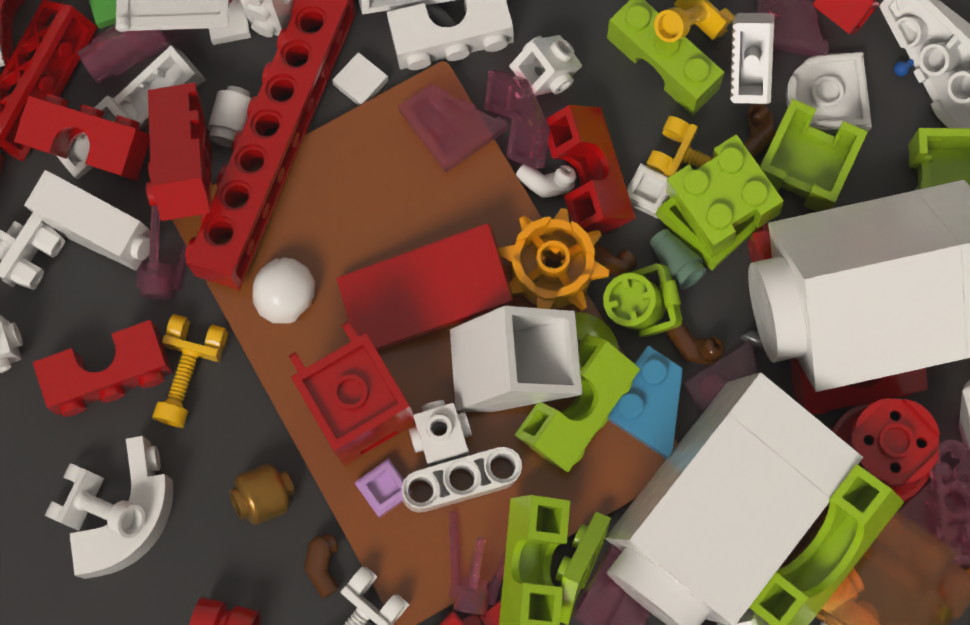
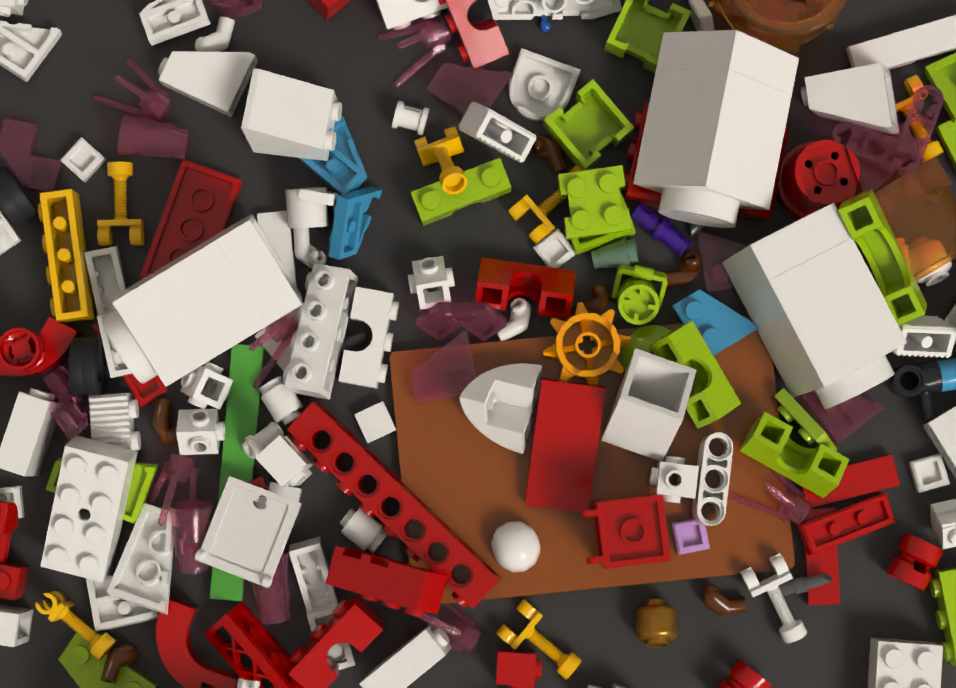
camera: 75 degrees left, 10 degrees up
(441, 198) = (504, 403): none -> white brick
(731, 297) = (661, 229): none -> dark purple pin

